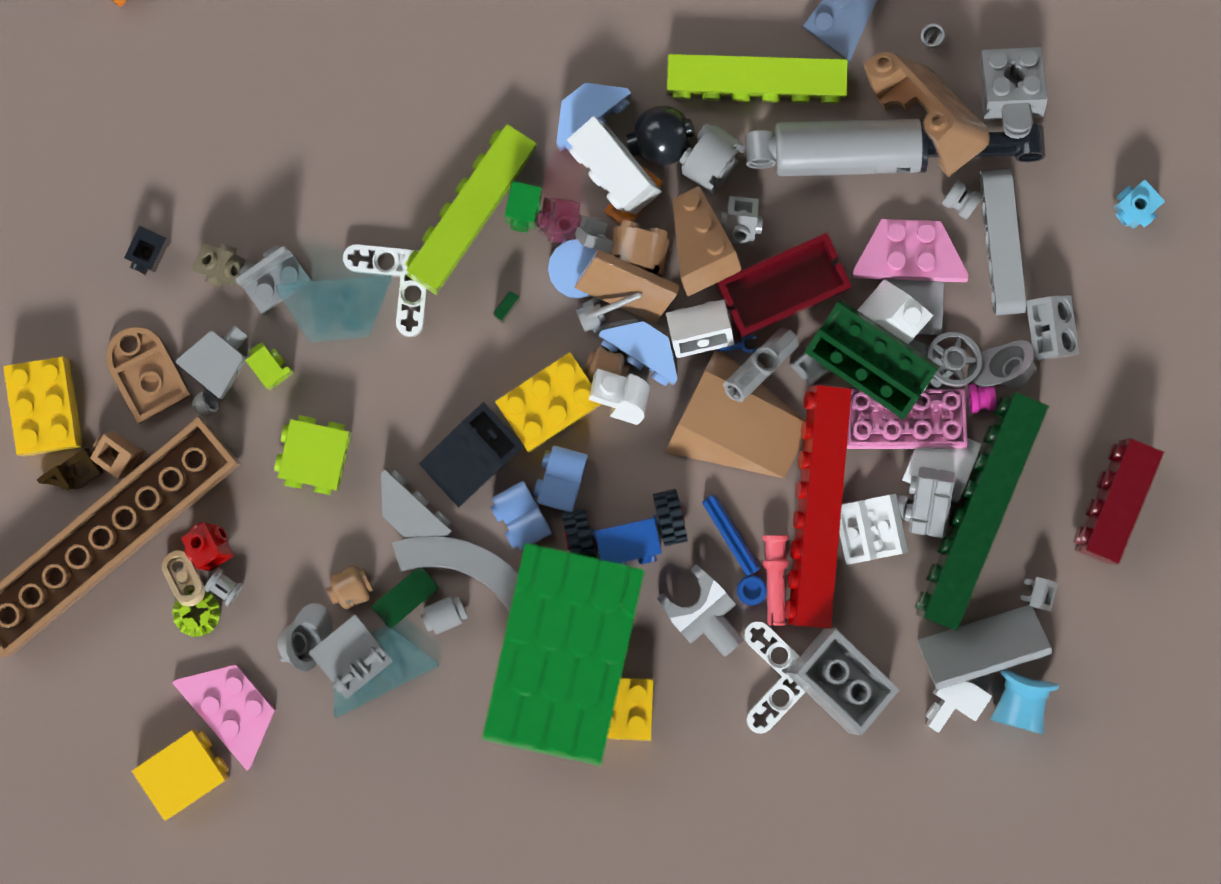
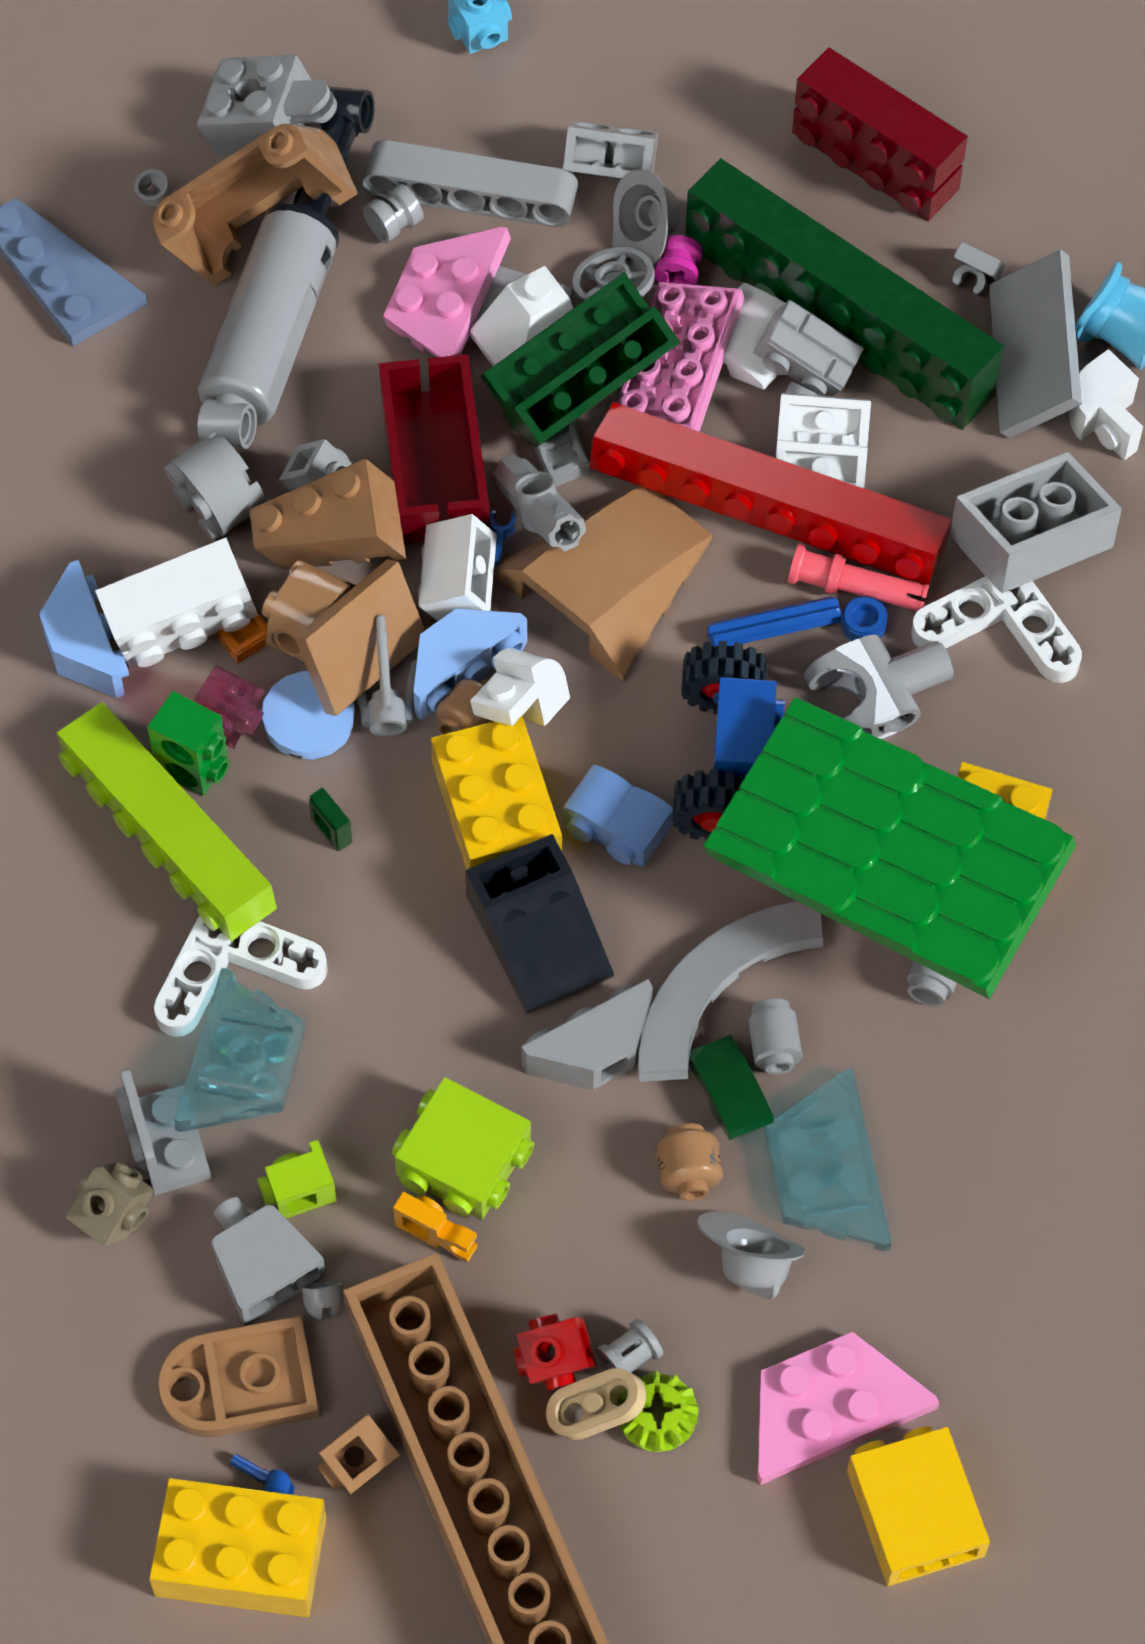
camera: 70 degrees left, 25 degrees down
(73, 472) = (363, 1538): dark brown slope -> none
(88, 416) = (274, 1480): none -> blue hand
(142, 240) = (41, 1296): black brick -> none
(267, 446) = (427, 1222): none -> light orange plate
(350, 656) = (801, 1181): light grey hinge -> none
(521, 516) = (656, 886): medium blue brick -> none
(592, 232) = (262, 664): light grey slope -> none
(661, 135) = (153, 534): black brick -> none
(756, 77) = (121, 411): lime brick -> none

